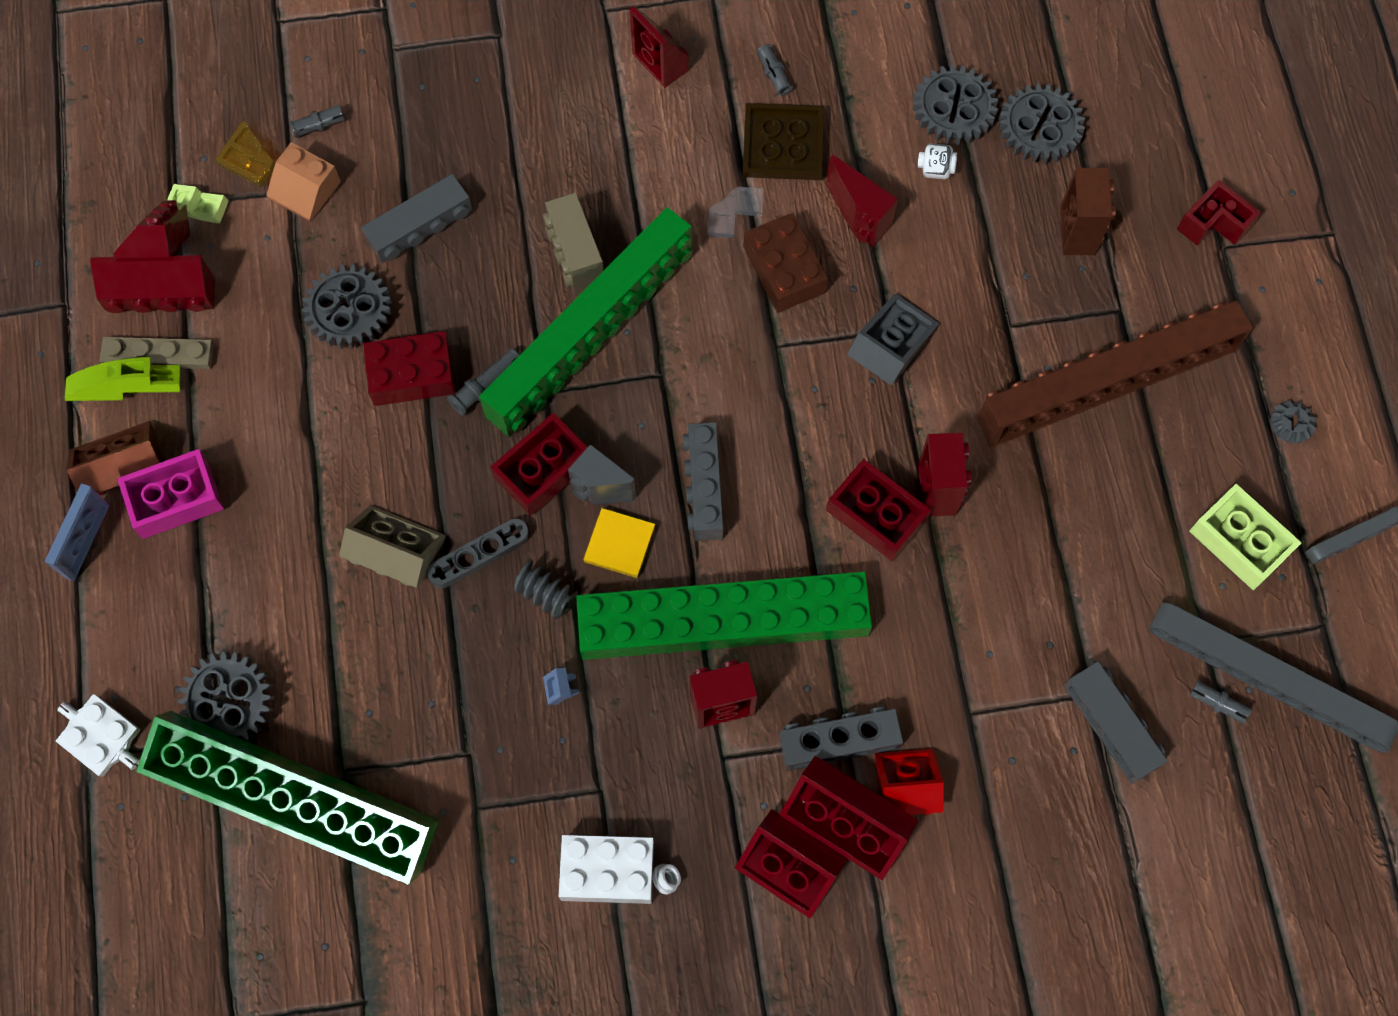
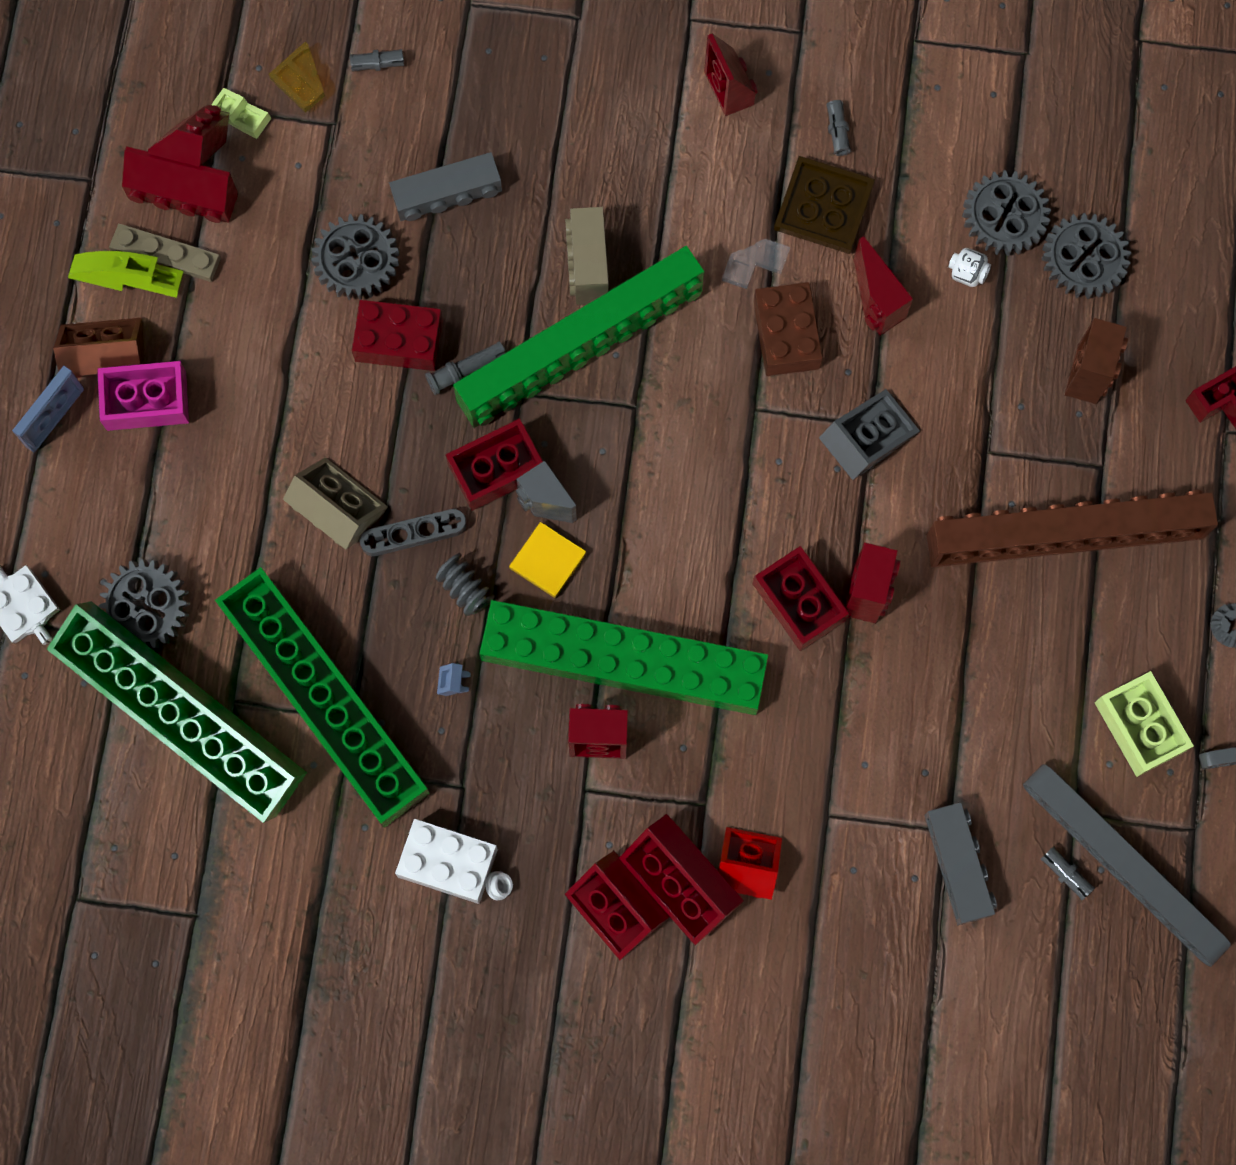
camera: 15 degrees right, 5 degrees up
(302, 182) = (345, 119): nougat slope -> none
(434, 740) = (322, 697): none -> green brick
(705, 482) = (644, 525): dark grey brick -> none
(884, 722) = (682, 812): dark grey brick -> none

